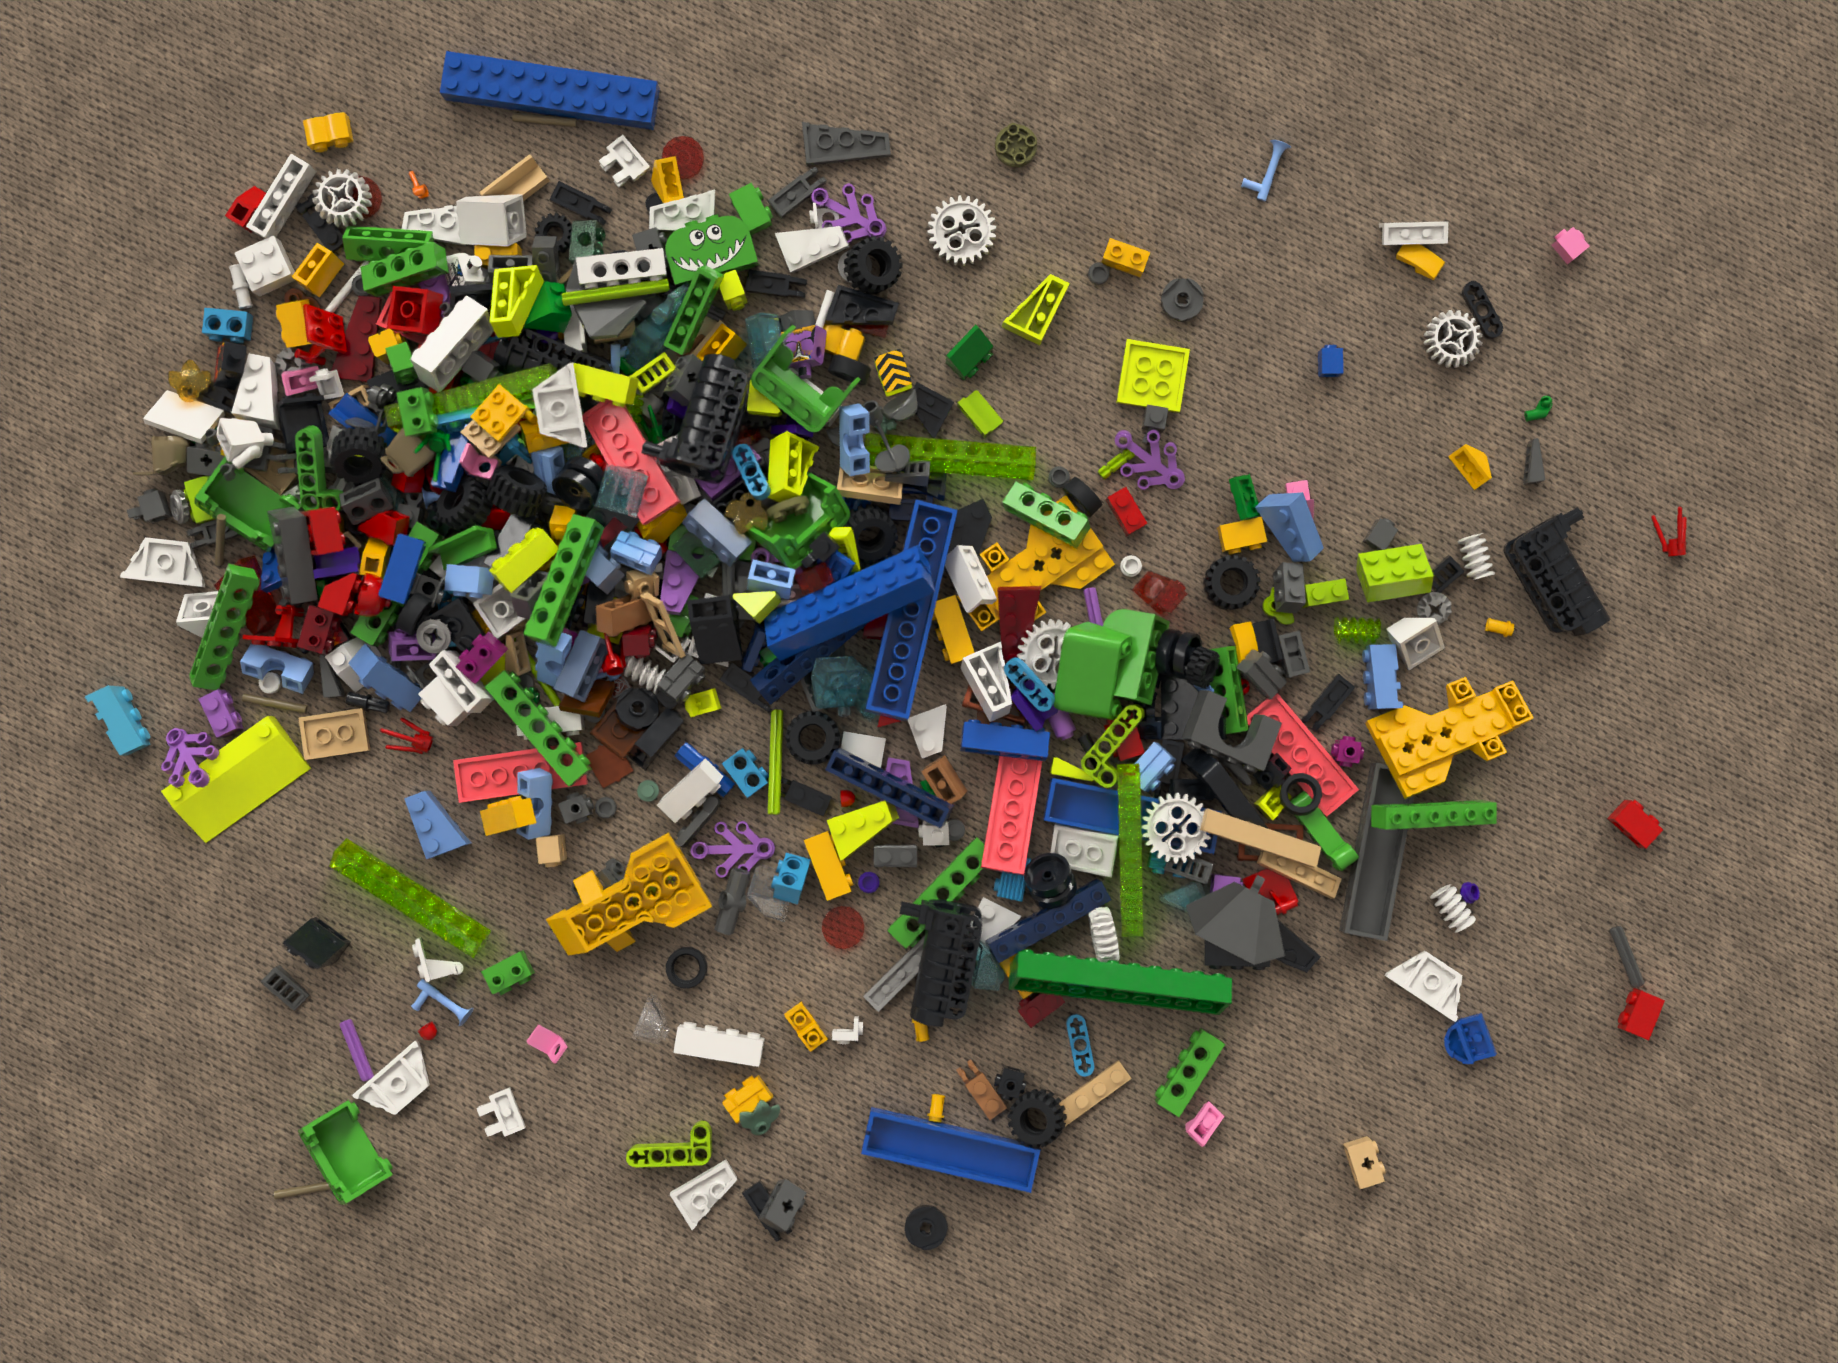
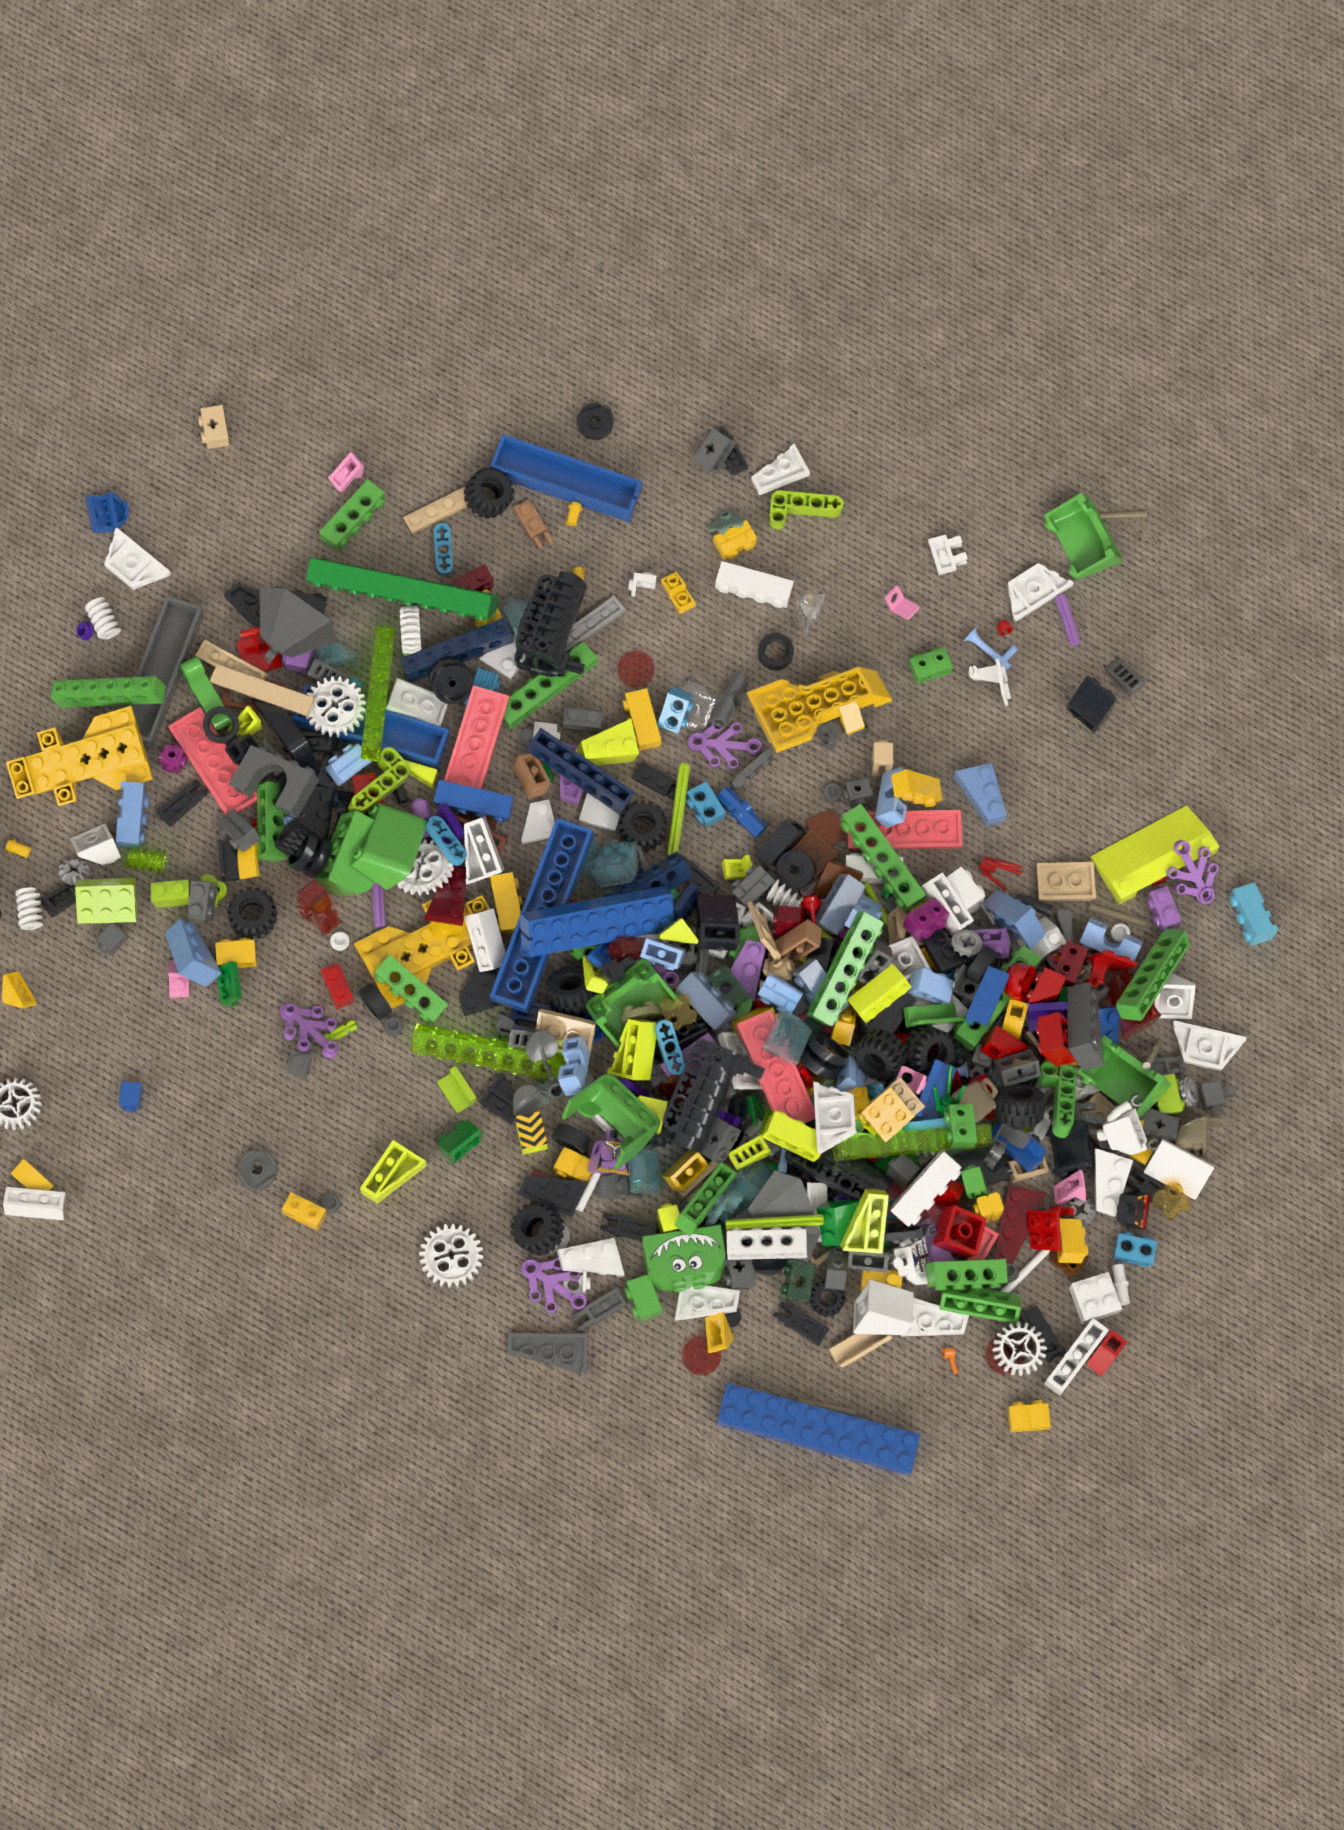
camera: 175 degrees left, 15 degrees down
(318, 270) = (1047, 1287): yellow brick -> none
(328, 383) = (1046, 1184): white bracket -> none
(409, 898) = (1009, 735): clear neon green brick -> none
(627, 157) = (753, 1360): white plate -> none
(648, 790) = (793, 801): sand green plate -> none
(691, 791) = (755, 792): white brick -> none
(847, 798) = (619, 774): red hinge -> none
(868, 882) = (608, 702): dark purple plate -> none
(1010, 1074) = (507, 525): black brick -> none
(1016, 145) = (390, 1330): olive tile -> none
(1152, 375) = (294, 1104): neon yellow plate -> none
(1263, 189) = (164, 1263): light blue piece -> none
(1293, 654) = (208, 844): dark grey brick -> none

